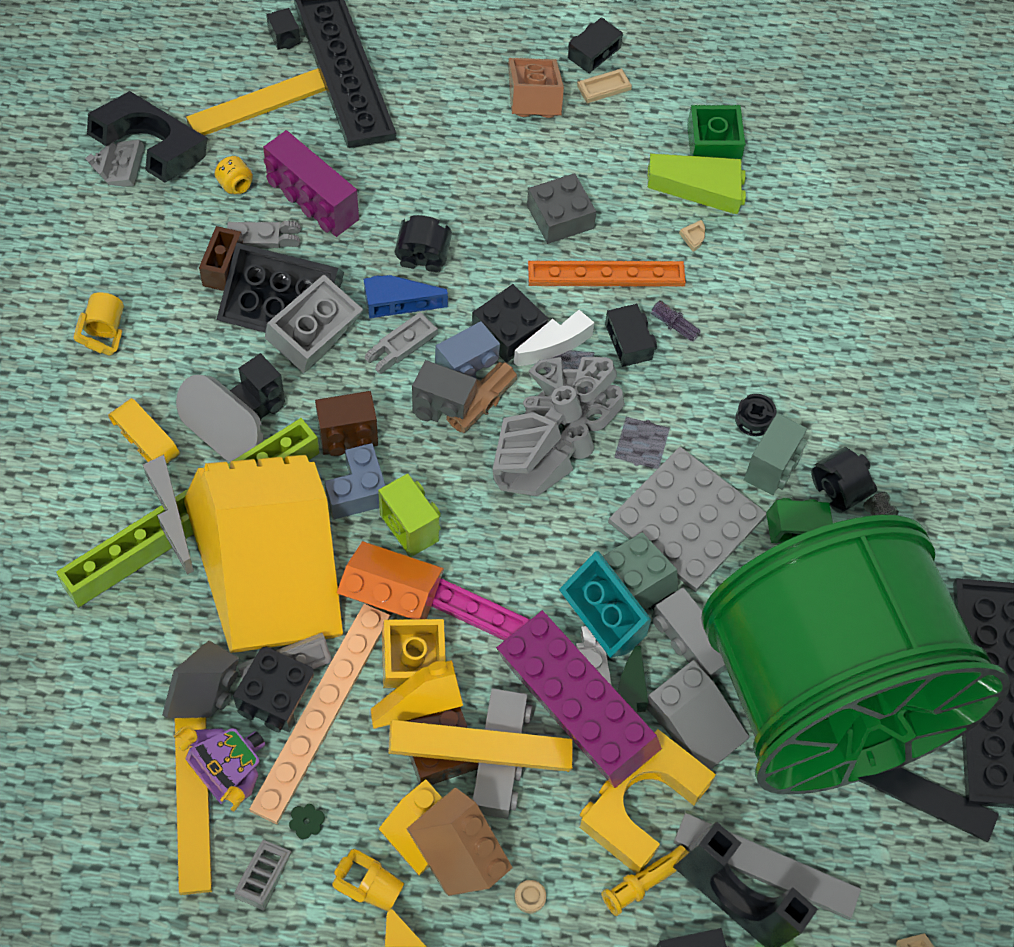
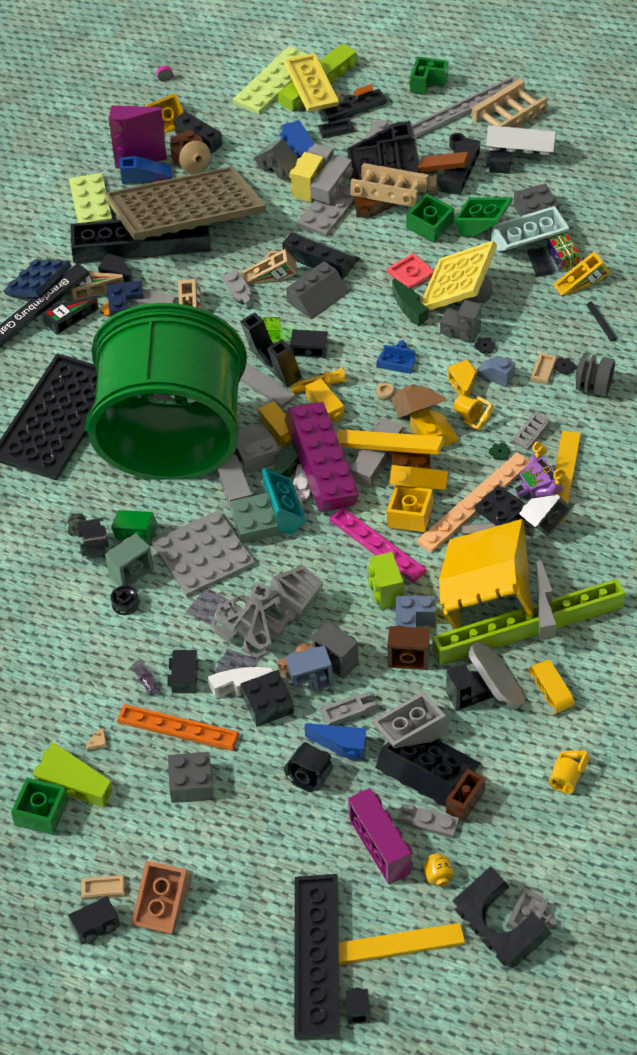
camera: 155 degrees left, 10 degrees down
(390, 581) = (412, 547): orange slope -> none

